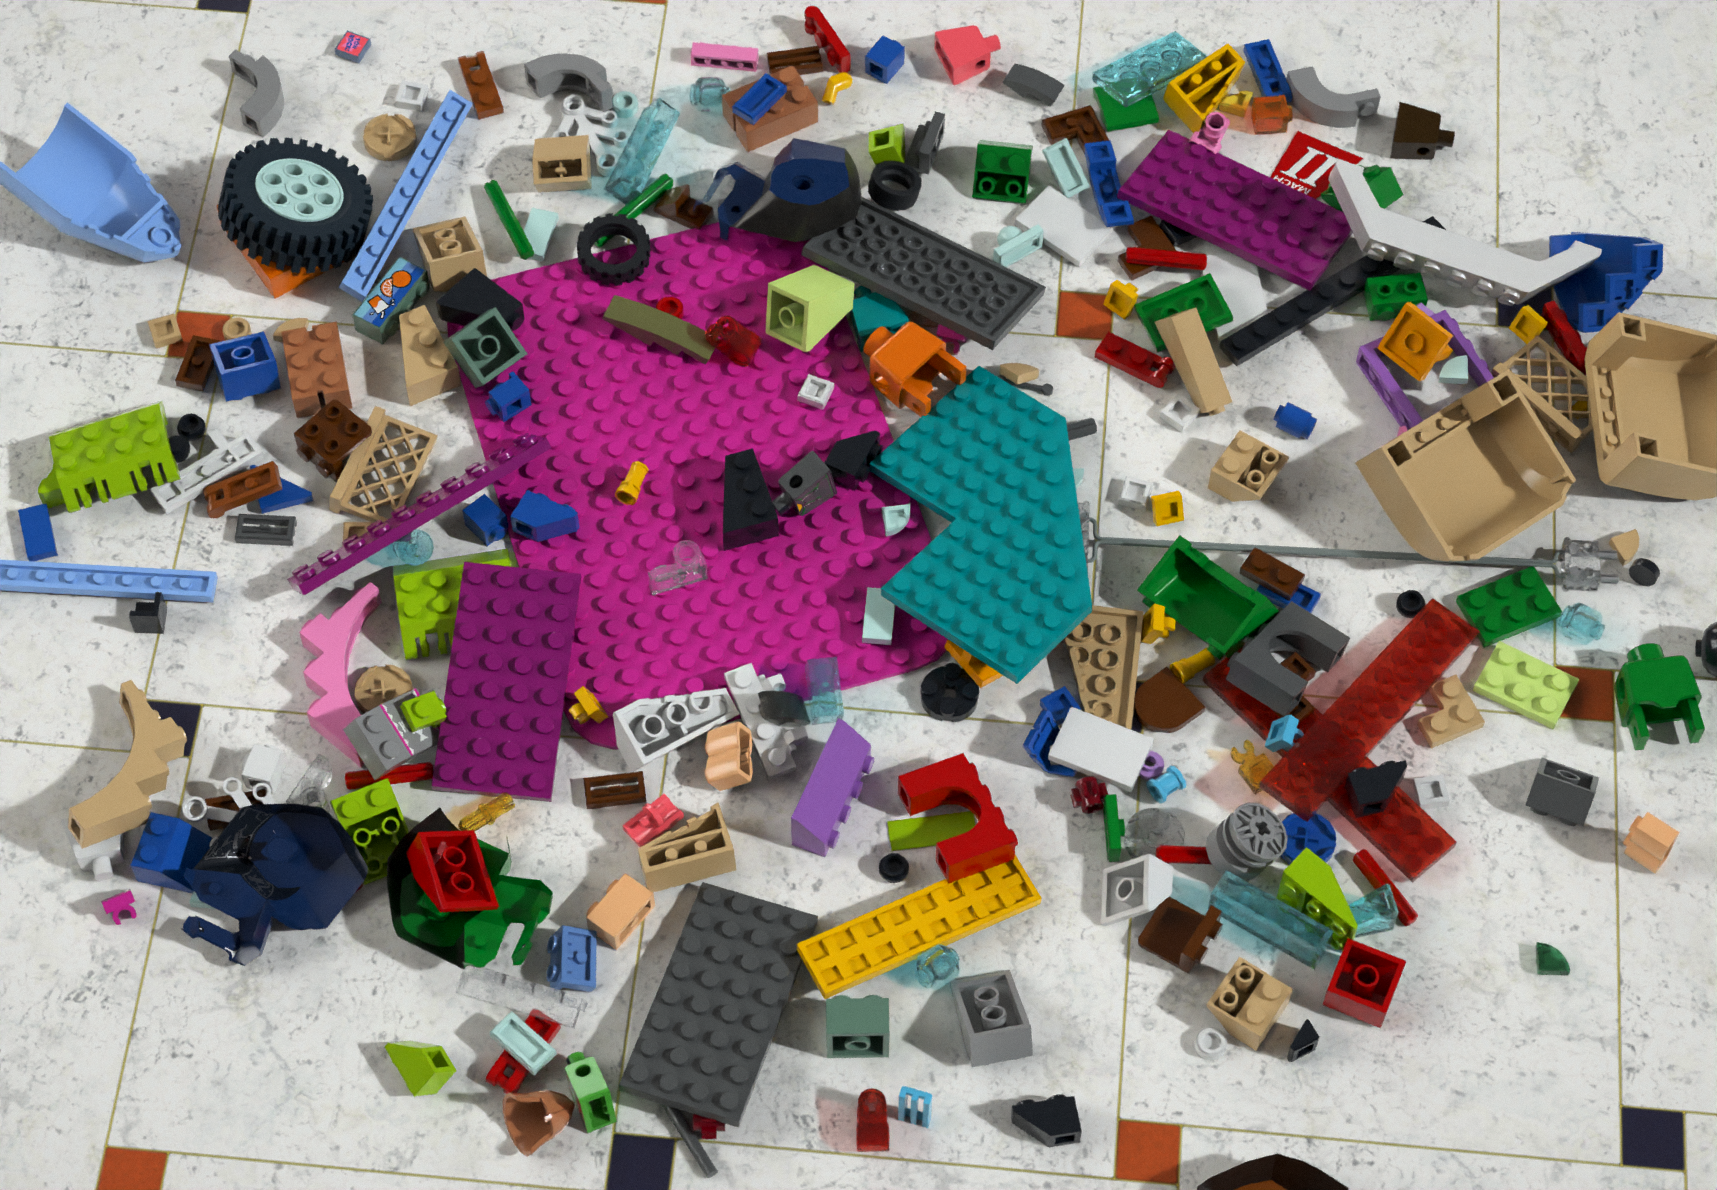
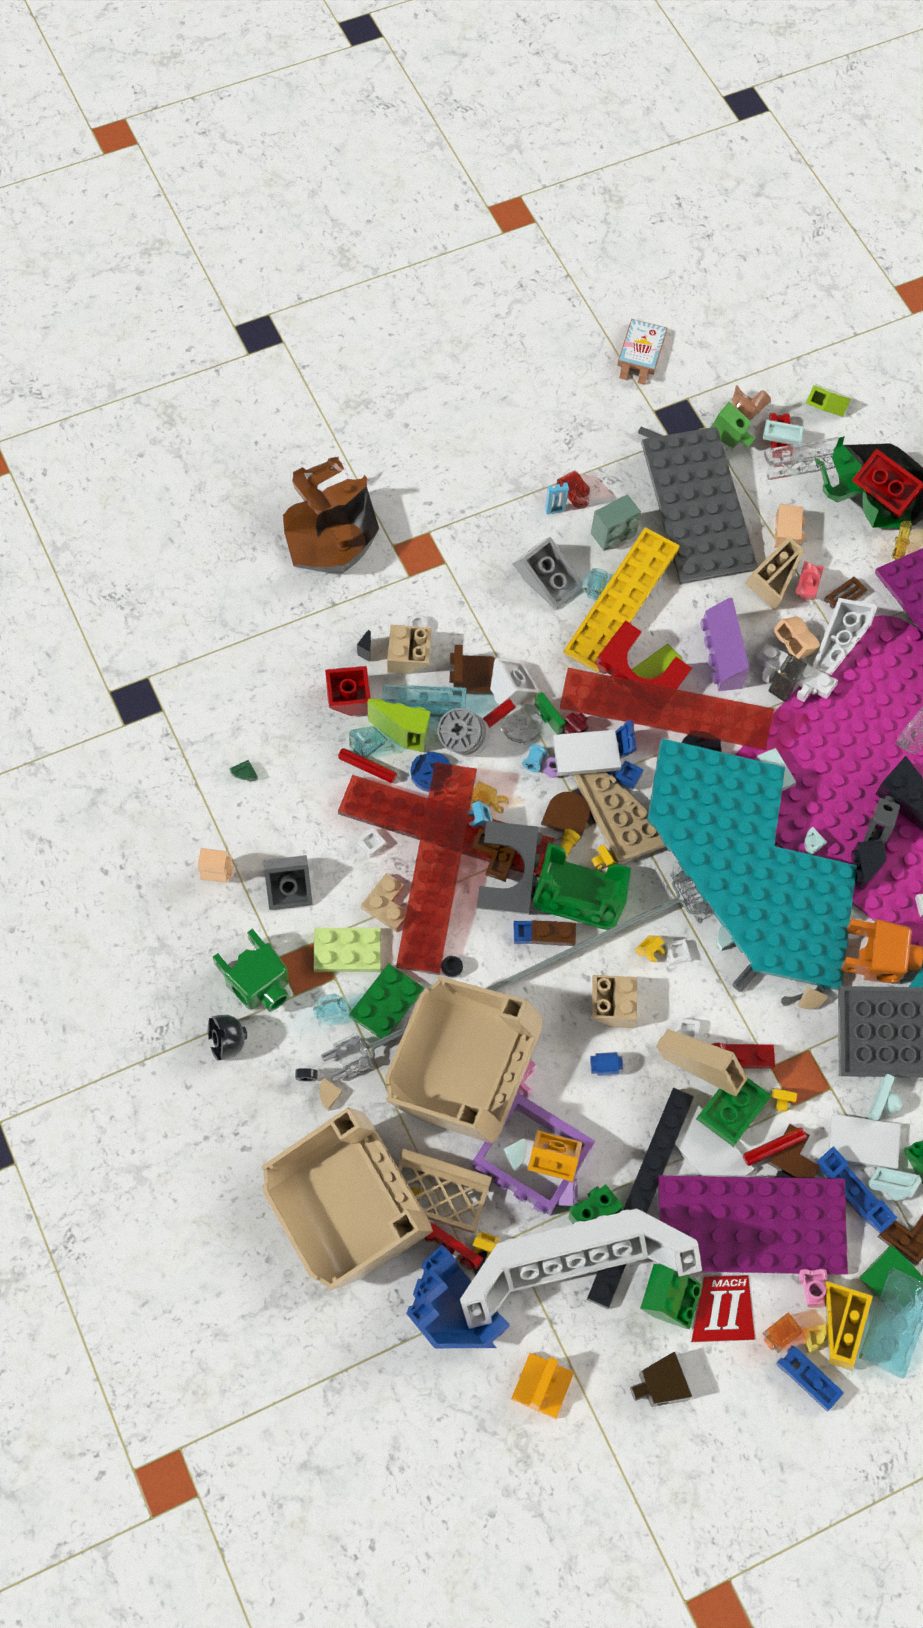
camera: 145 degrees right, 5 degrees up
(572, 959) = (791, 490): medium blue bracket -> none
(587, 707) = (896, 621): yellow tile -> none
(824, 690) = (771, 696): clear light blue brick -> none
(893, 868) = (659, 629): black plate -> none
(971, 742) = (667, 708): none -> clear red plate
(1049, 1121) = (480, 535): black slope -> none
(1327, 106) = (750, 1366): light grey arch -> none
(1374, 787) = (406, 808): black slope -> none
(1539, 189) = (542, 1385): none -> light orange bracket

